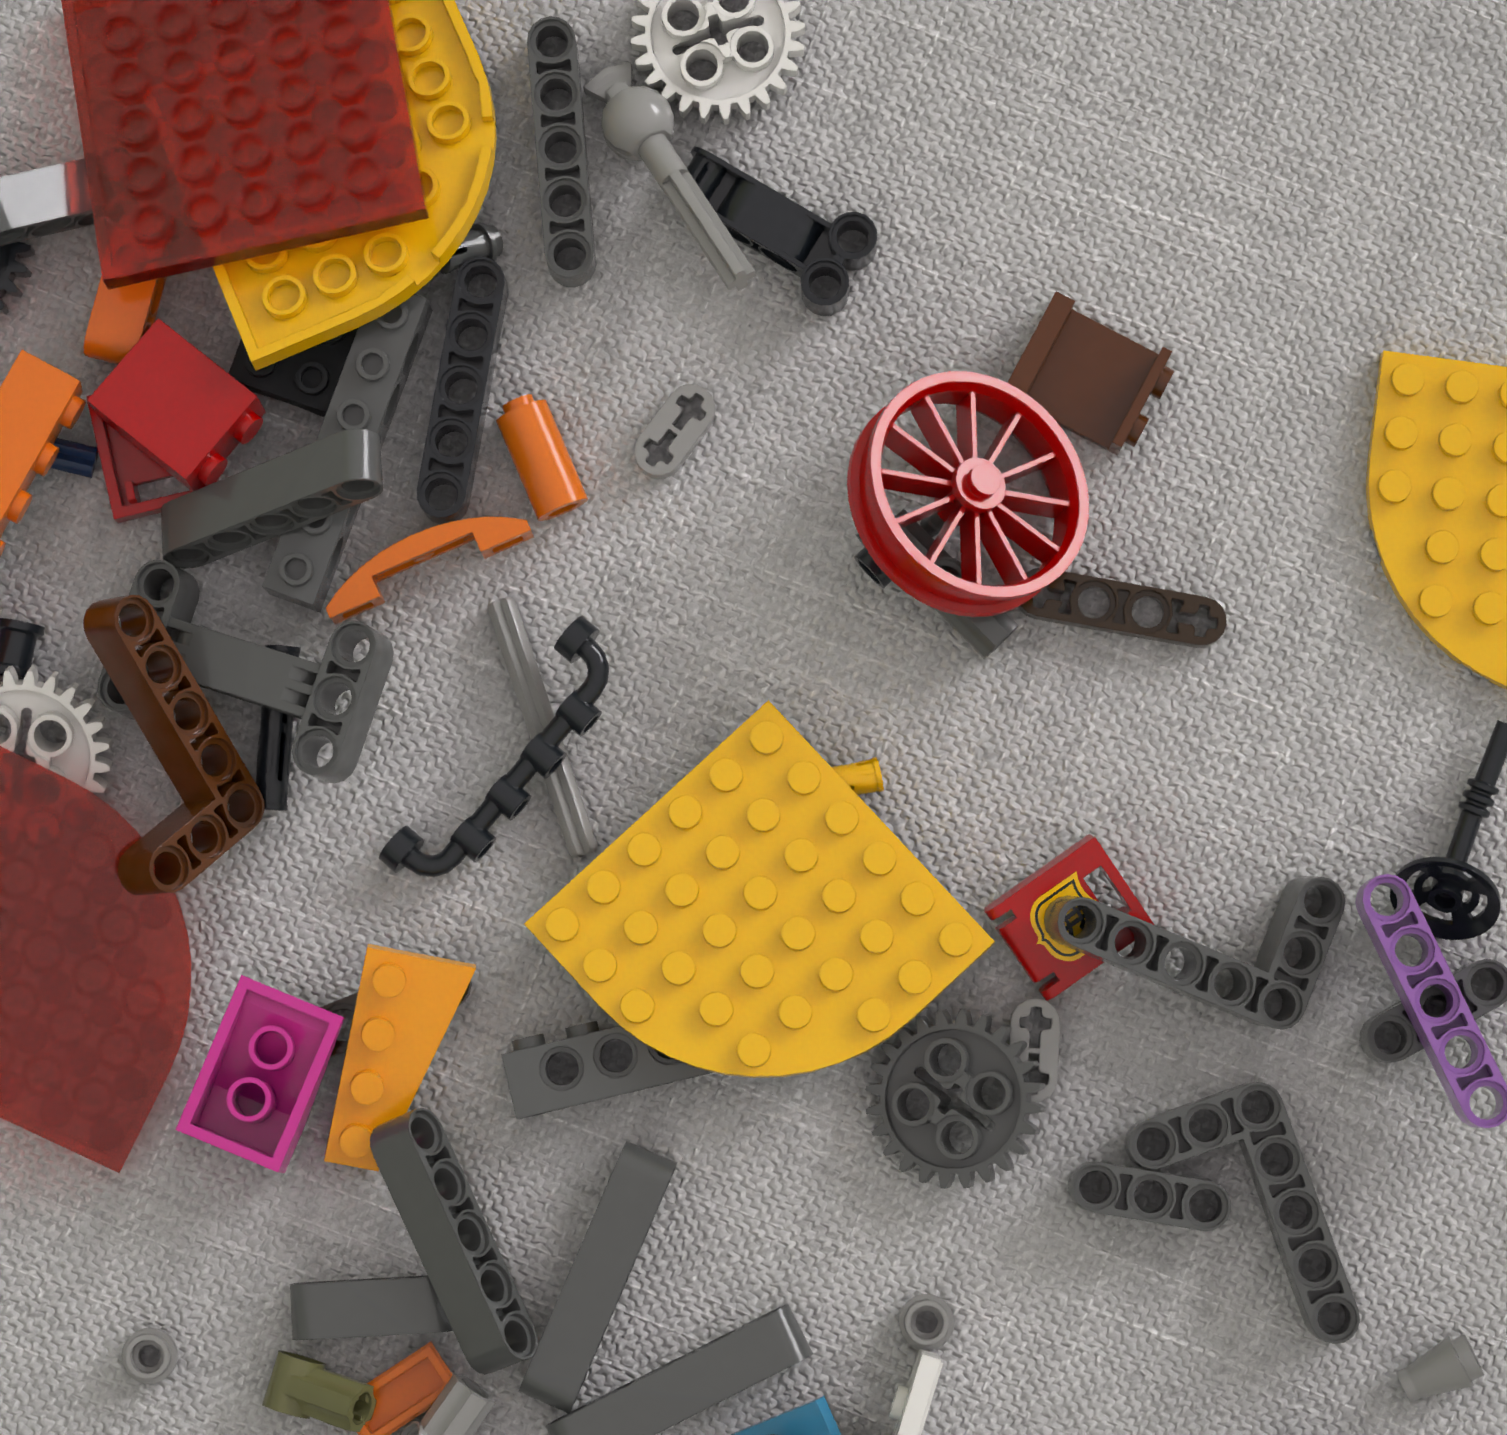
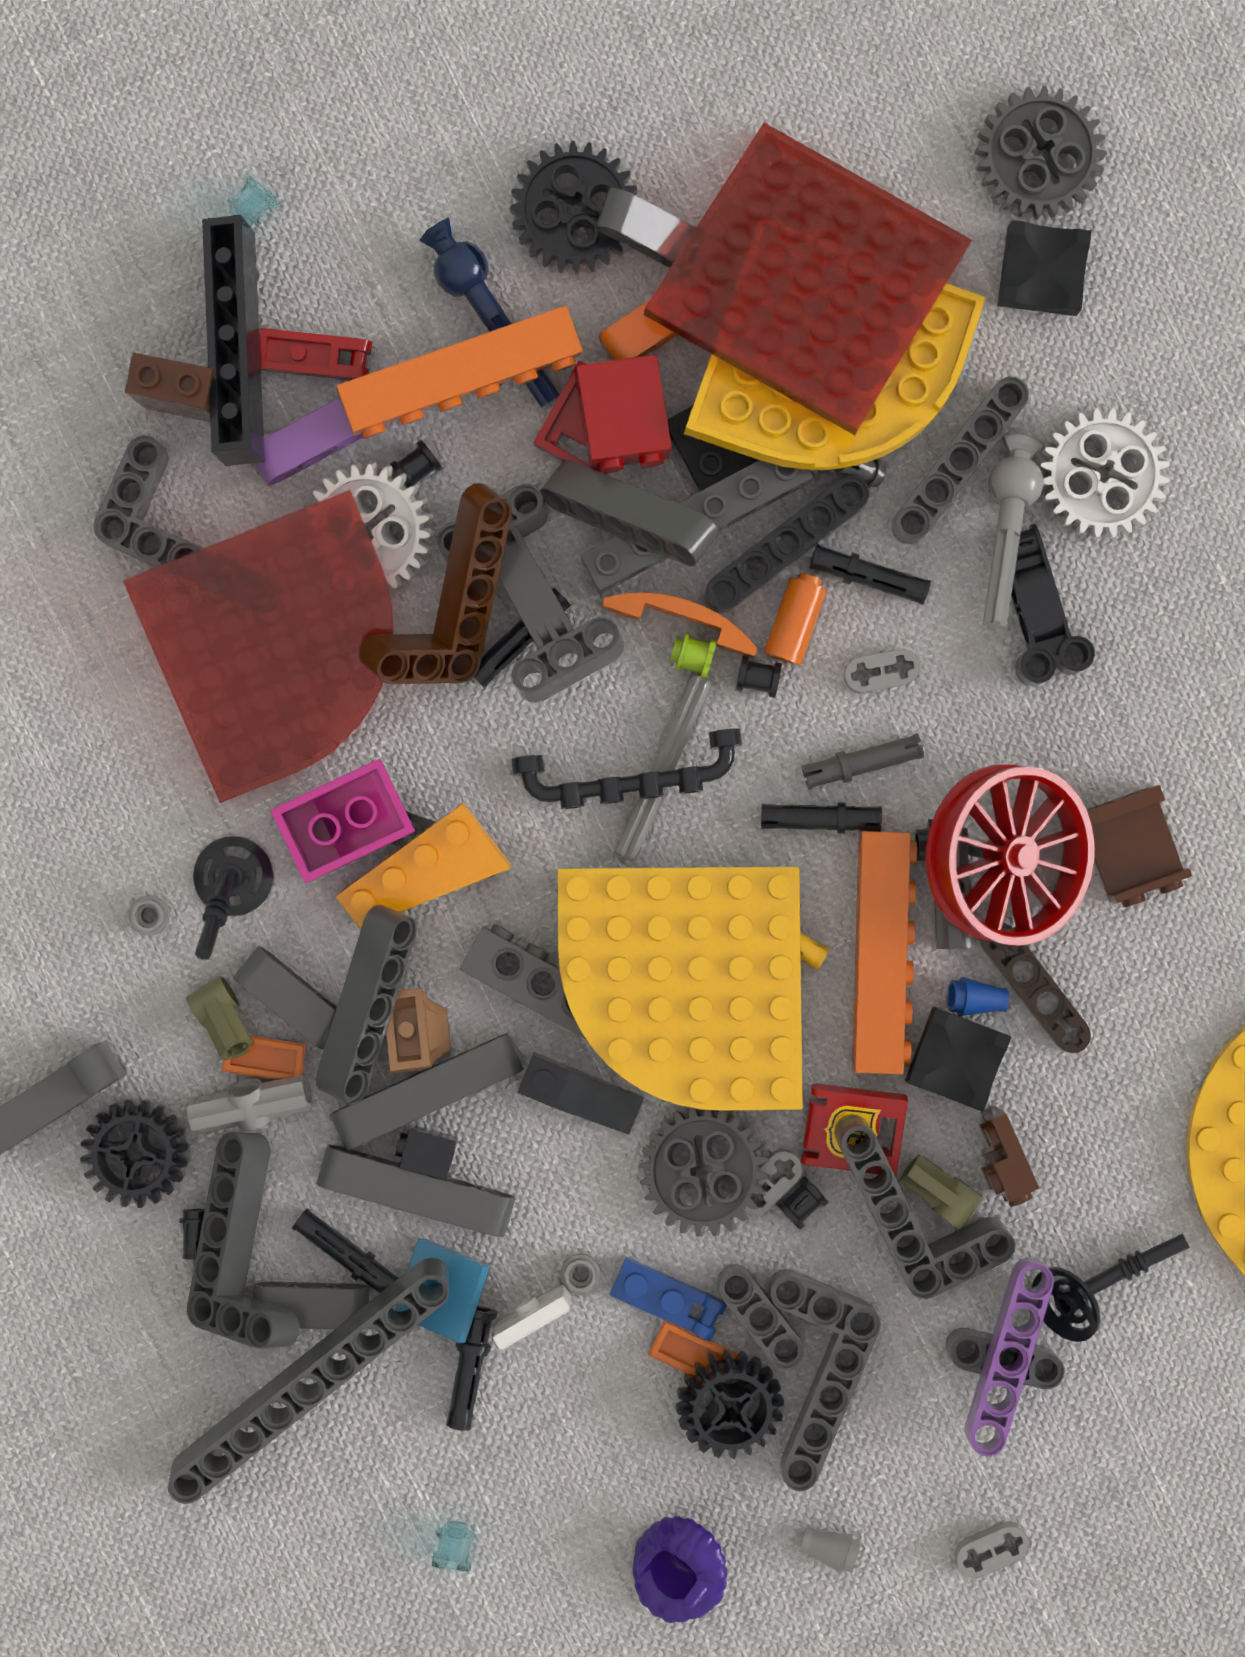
camera: 35 degrees right, 5 degrees up
(202, 1270) = (230, 882): none -> black dish
(468, 585) = (693, 654): none -> lime brick
(532, 1224) = (416, 1032): none -> medium nougat slope
(555, 548) = (758, 676): none -> black bush
(574, 346) = (866, 573): none -> black pin
(653, 1338) = (426, 1151): none -> black brick
(738, 538) = (846, 766): none -> dark grey pin
(748, 632) = (821, 817): none -> black pin
(758, 1135) = (580, 1093): none -> black slope
(932, 712) = (882, 952): none -> orange brick
(1037, 1265) = (667, 1297): none -> blue plate
(1068, 673) = (975, 997): none -> blue cone
(1095, 1039) = (789, 1206): none -> black bush
(1107, 749) = (957, 1058): none -> black brick
(1115, 1299) = (682, 1348): none -> orange tile
(1199, 1335) = (708, 1426): none -> black gear
(1227, 898) = (947, 1195): none -> olive piece
(1260, 812) = (1006, 1165): none -> reddish brown plate

